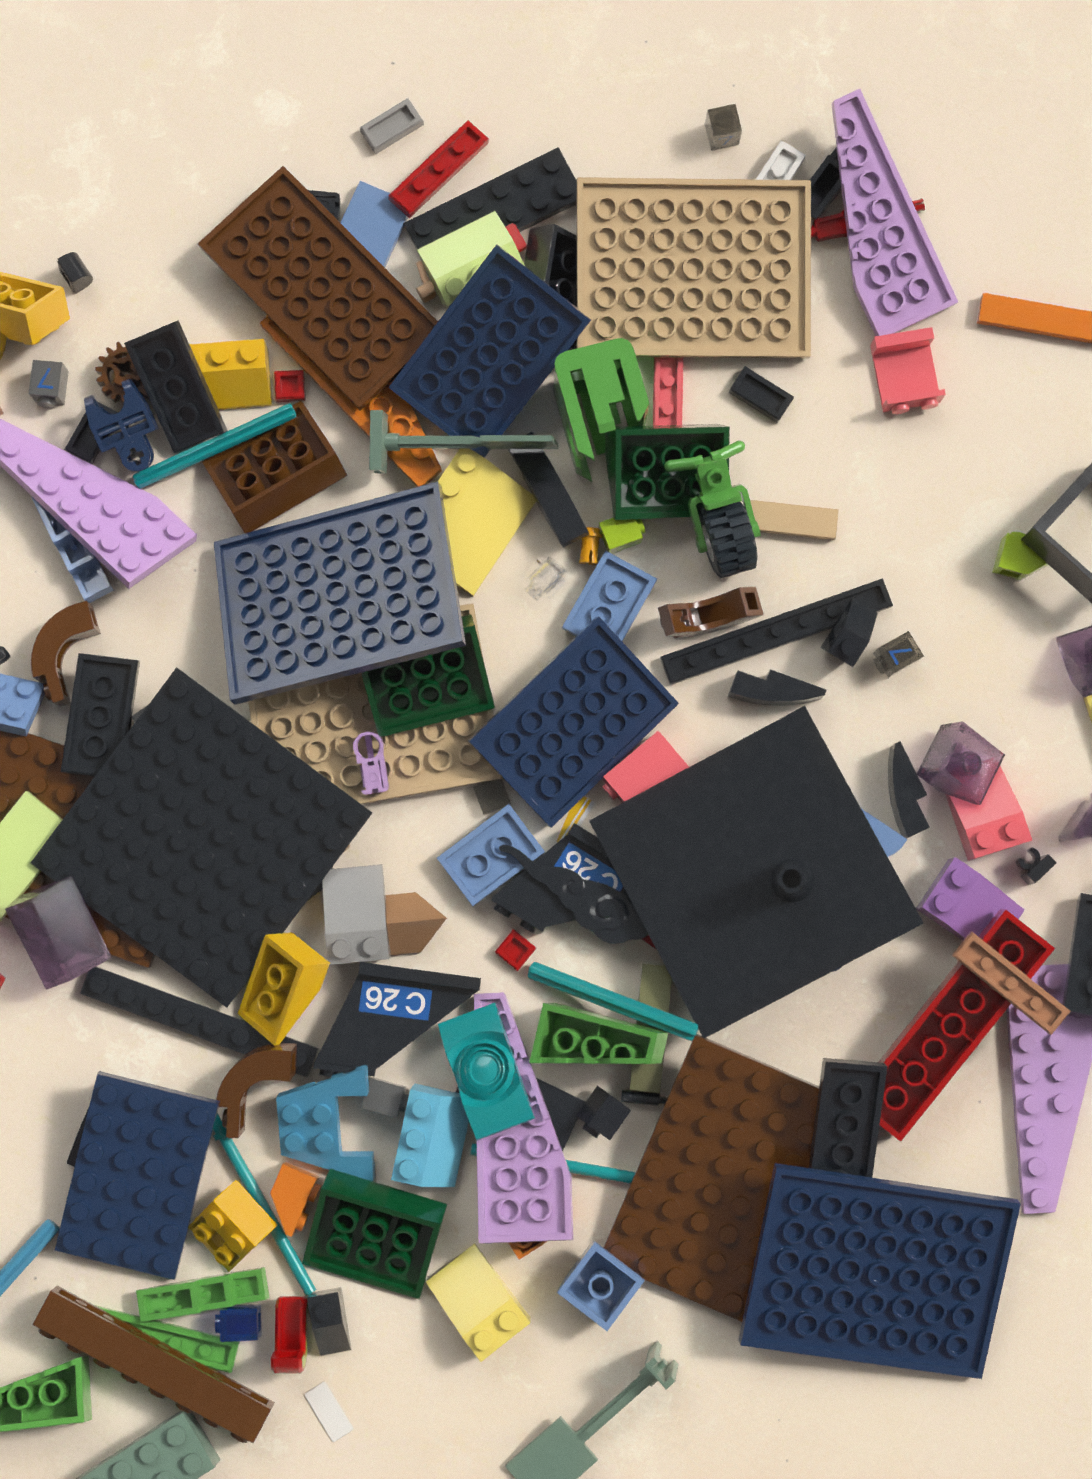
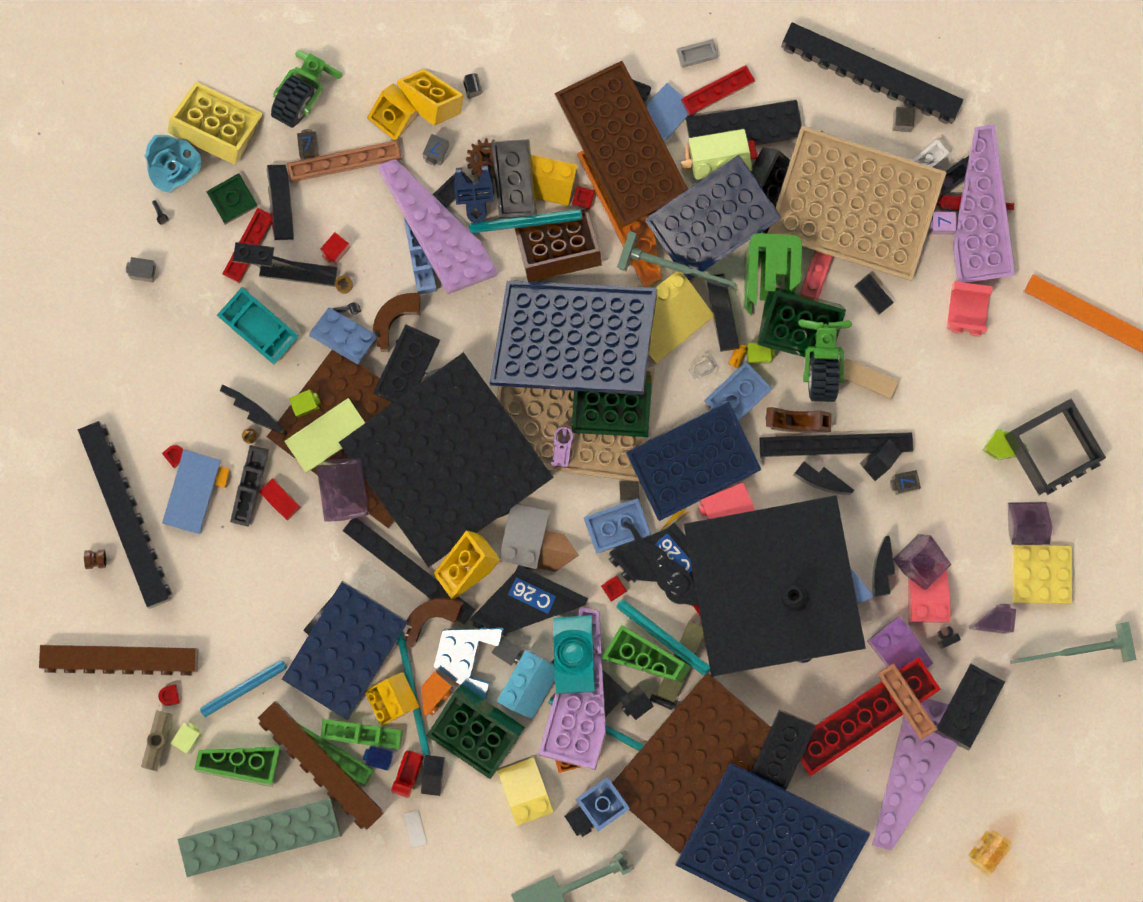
camera: 15 degrees right, 0 degrees up
(572, 1323) = (579, 822): none -> black brick
(655, 75) = (871, 73): none -> black brick
(830, 259) = (943, 223): none -> lavender brick

